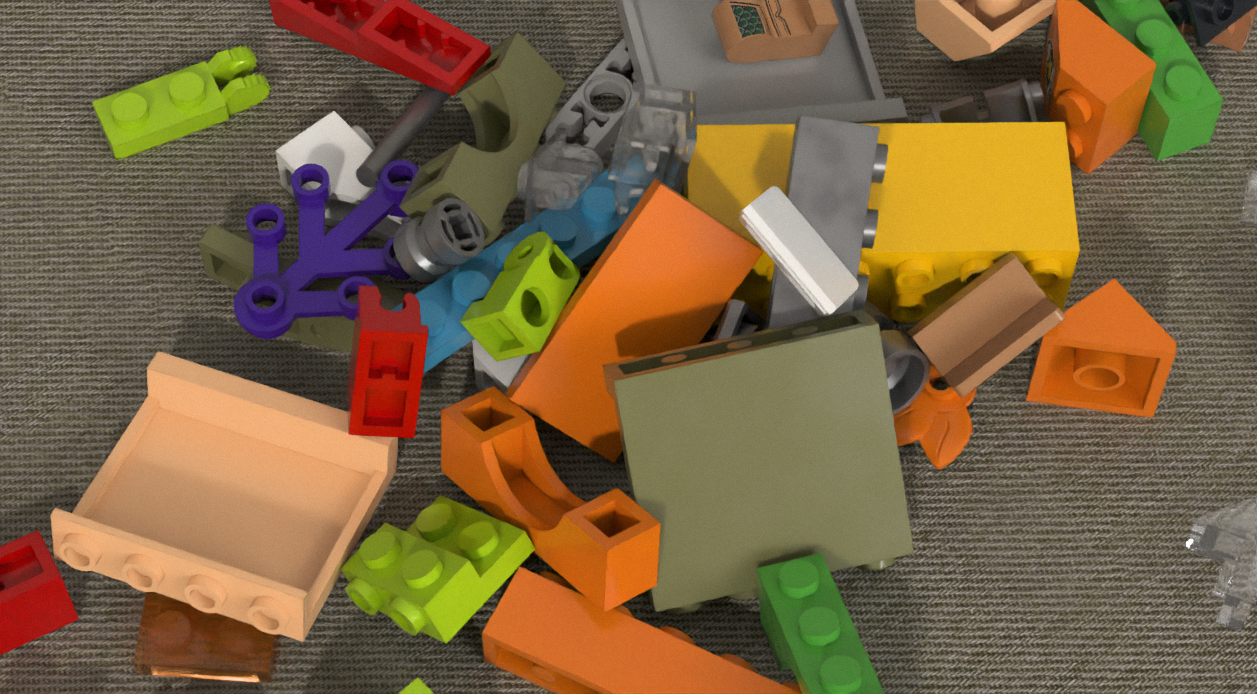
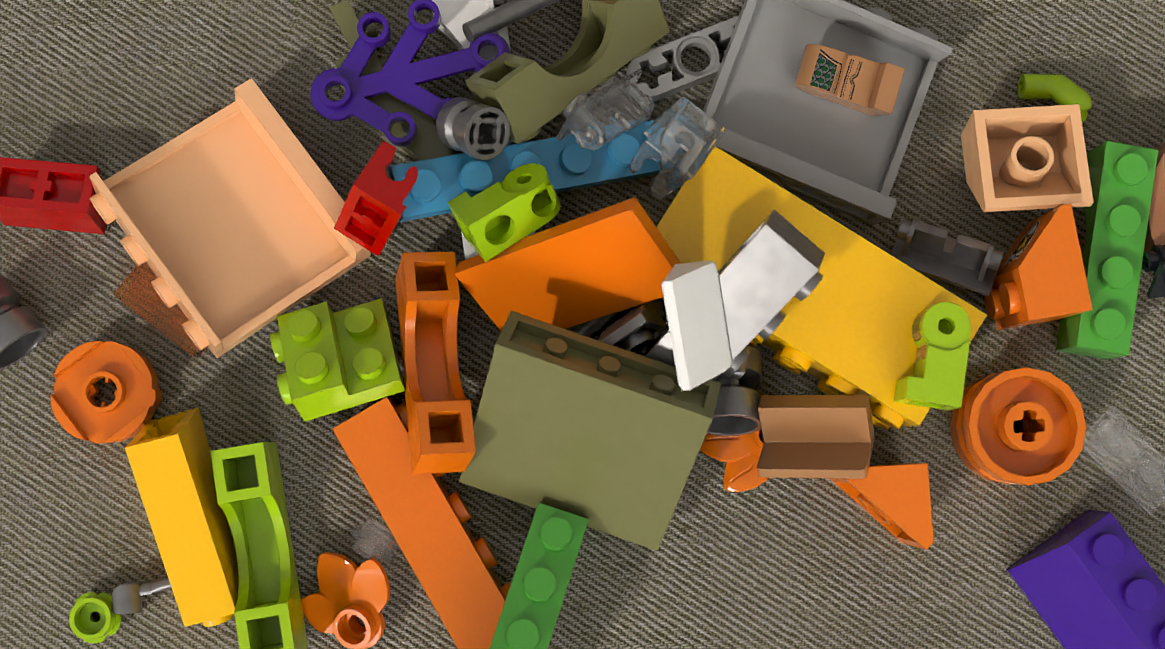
camera: 35 degrees right, 25 degrees up
(1052, 172) = (940, 360): none -> lime leg
(1174, 230) = (1048, 422): none -> orange wheel

